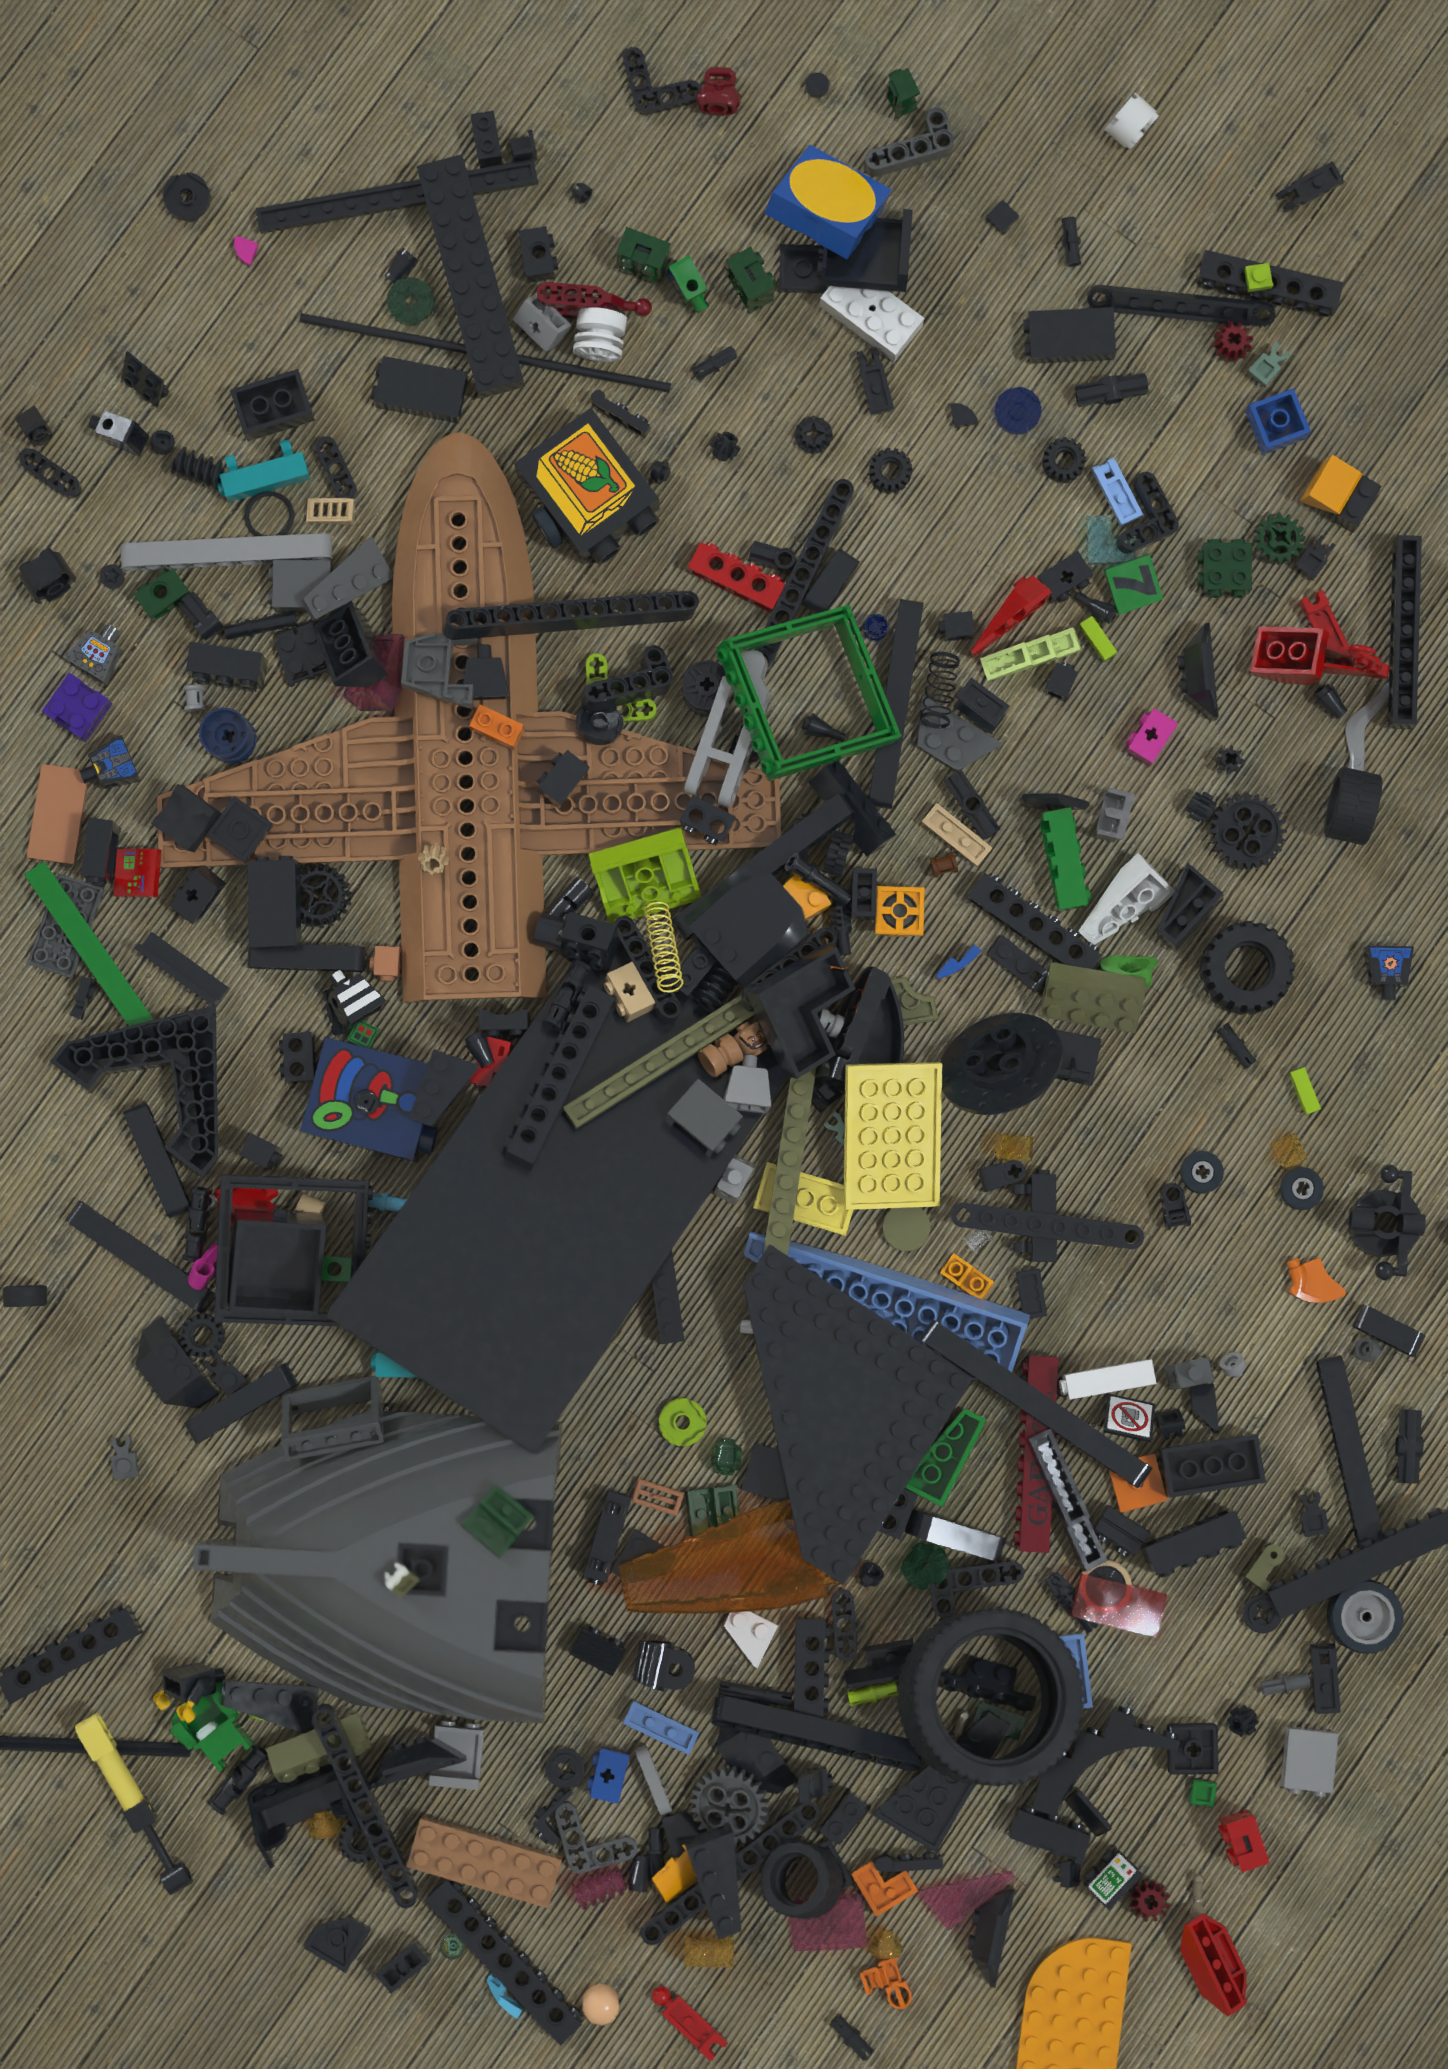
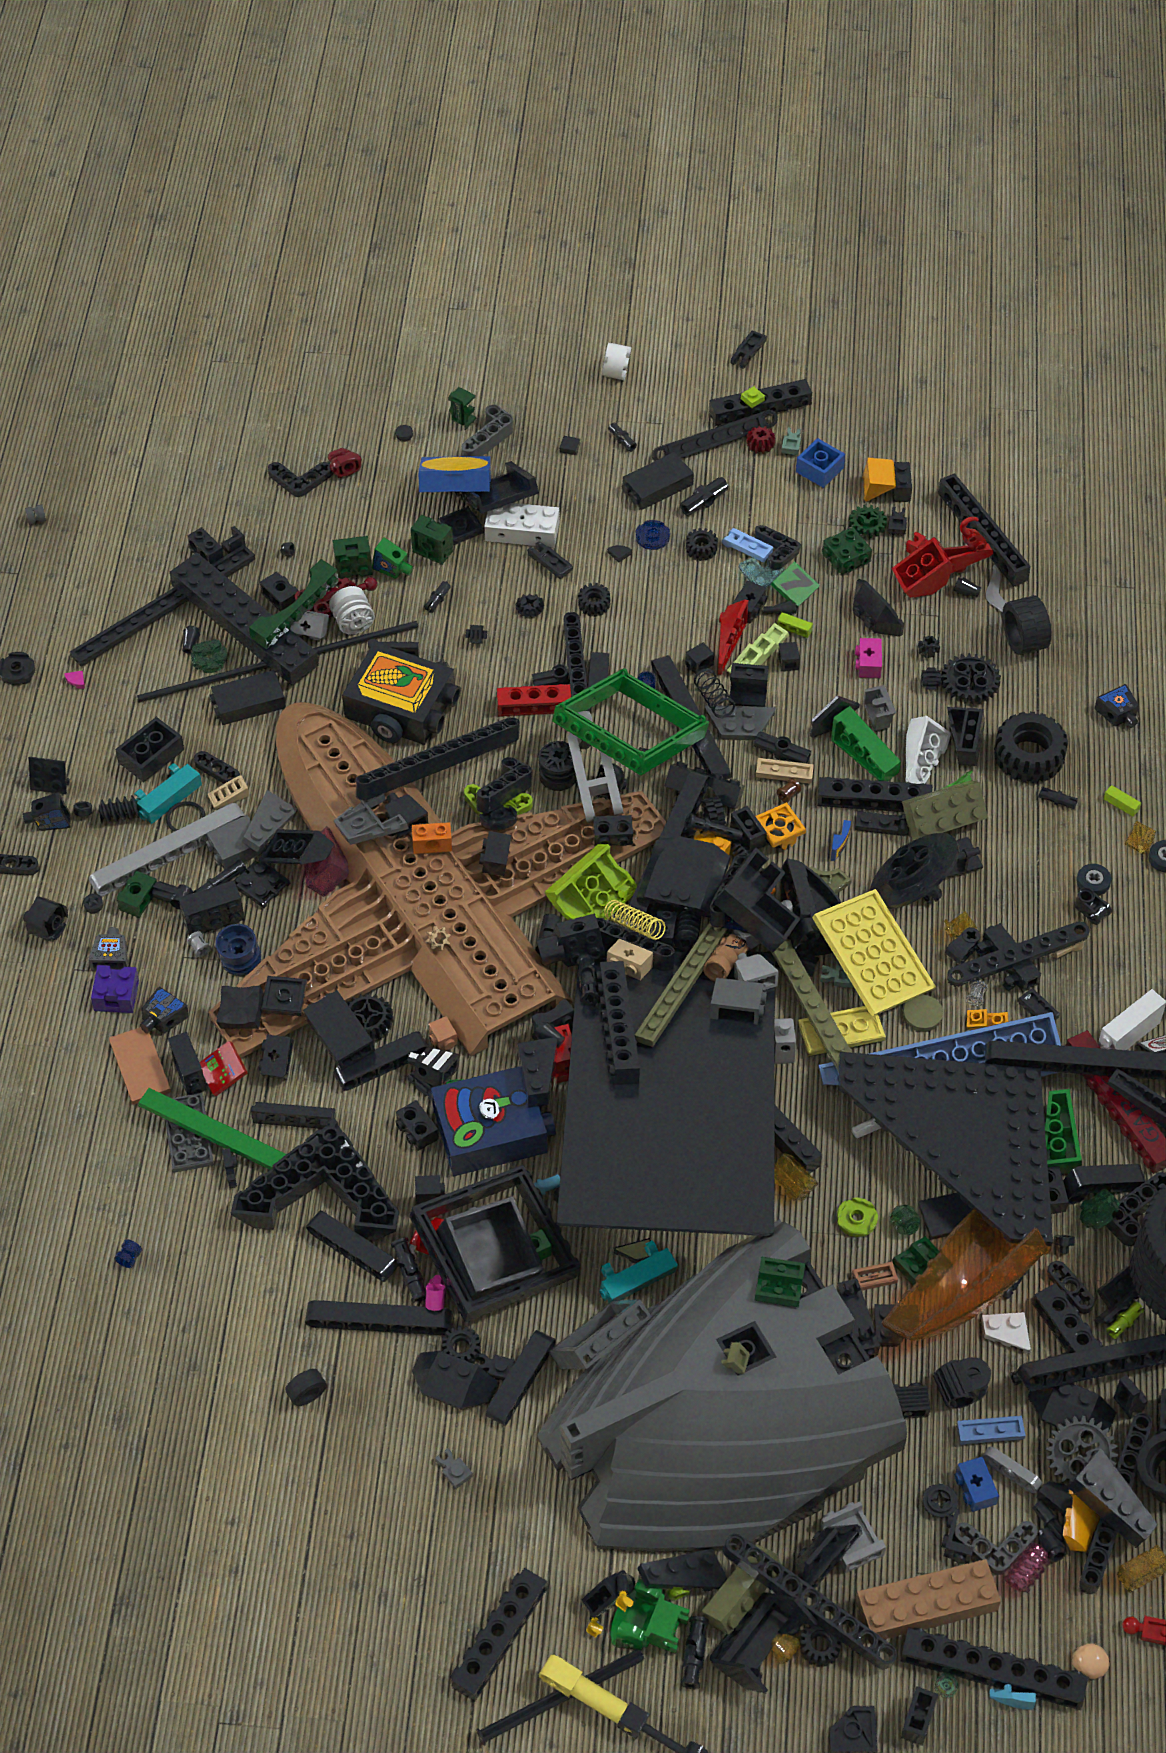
camera: 30 degrees left, 30 degrees down
(576, 287) = (268, 629): none -> dark green arch
(642, 1345) = (793, 1178): none -> clear yellow brick

